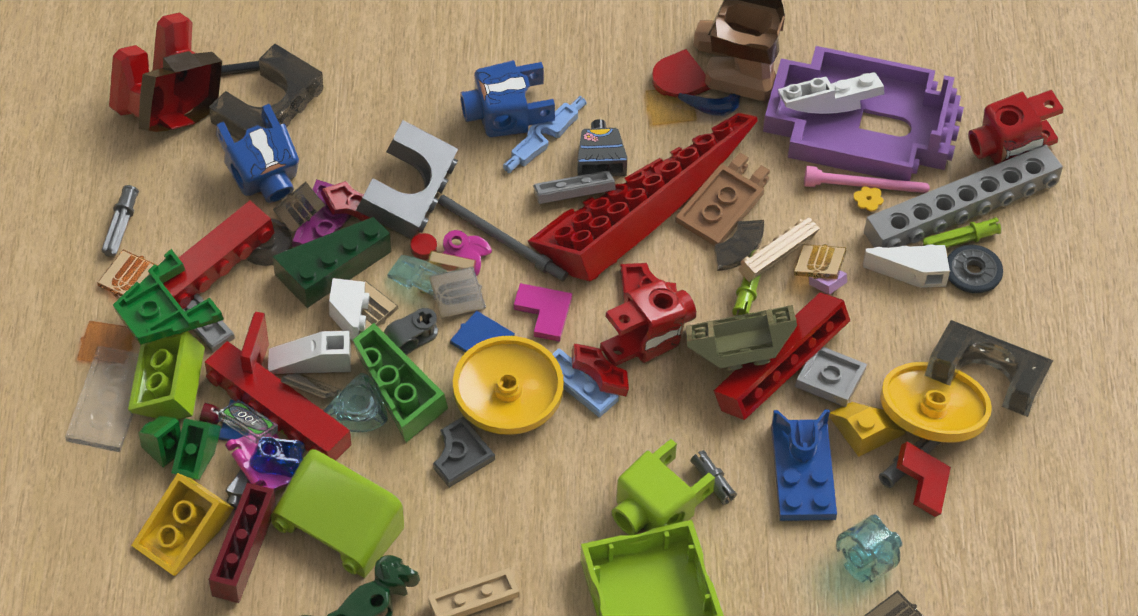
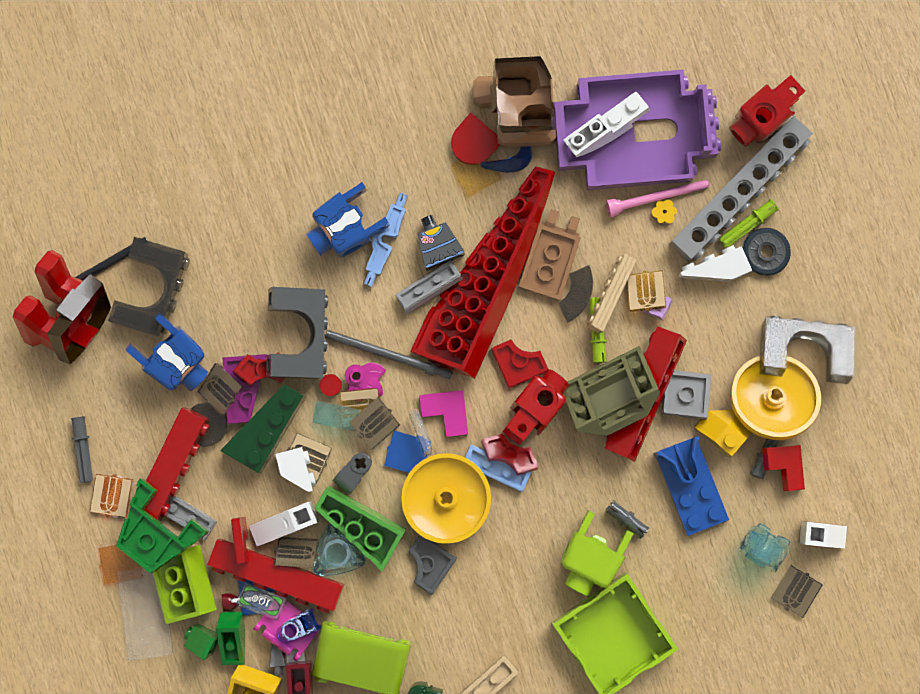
camera: 15 degrees left, 30 degrees up
(506, 311) = (420, 432): none -> clear tile
(947, 561) = (823, 534): none -> white slope

